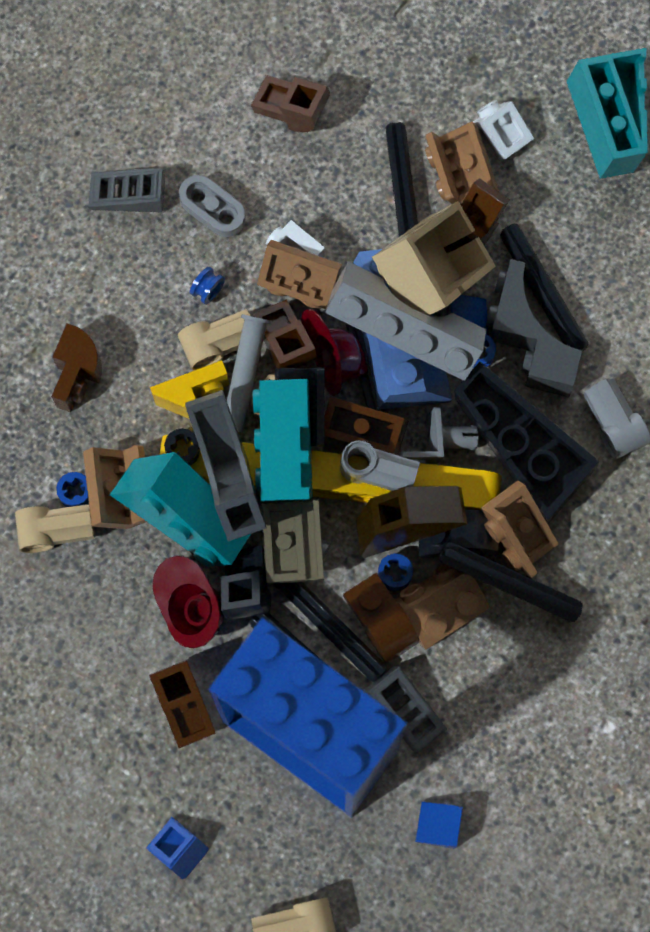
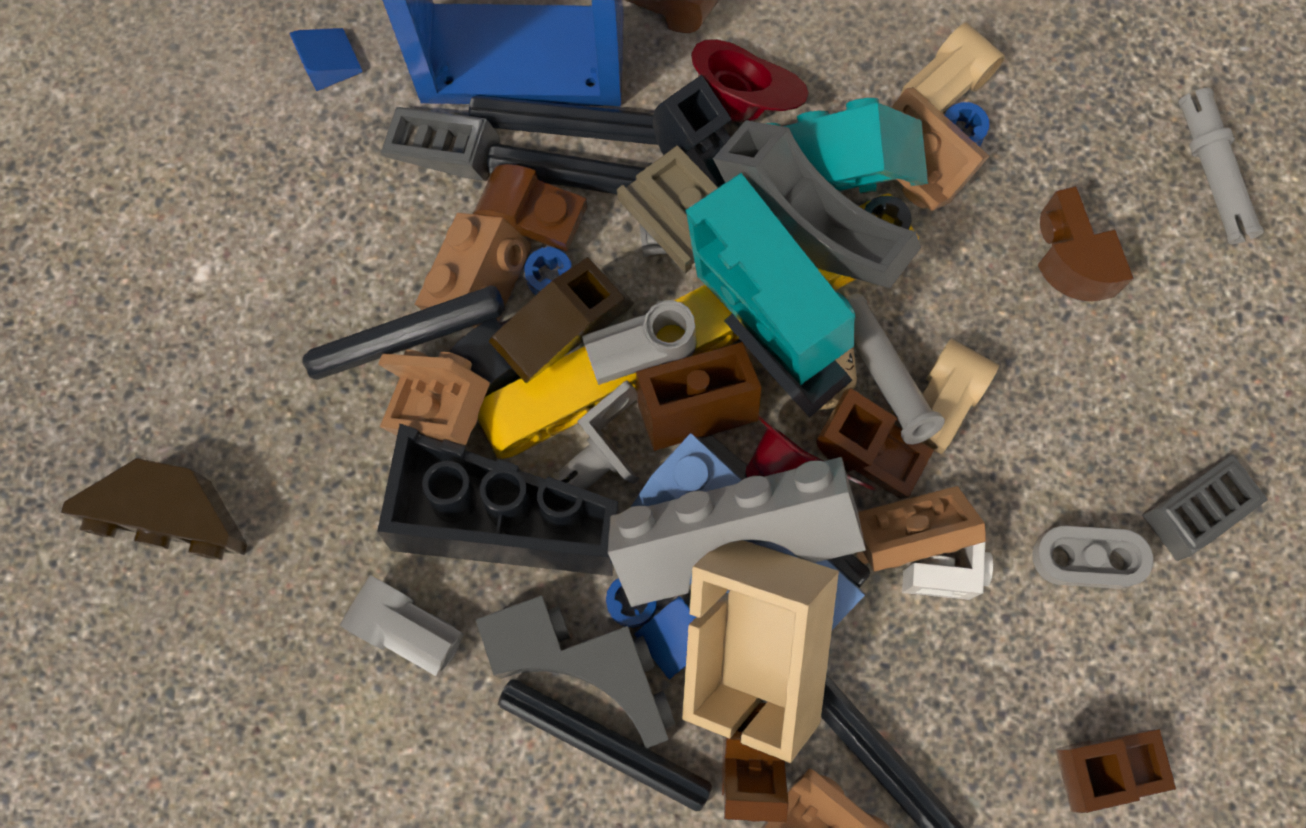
camera: 145 degrees right, 0 degrees up
(187, 387) = (930, 302): yellow slope -> none
(207, 285) = (1014, 450): blue bush -> none

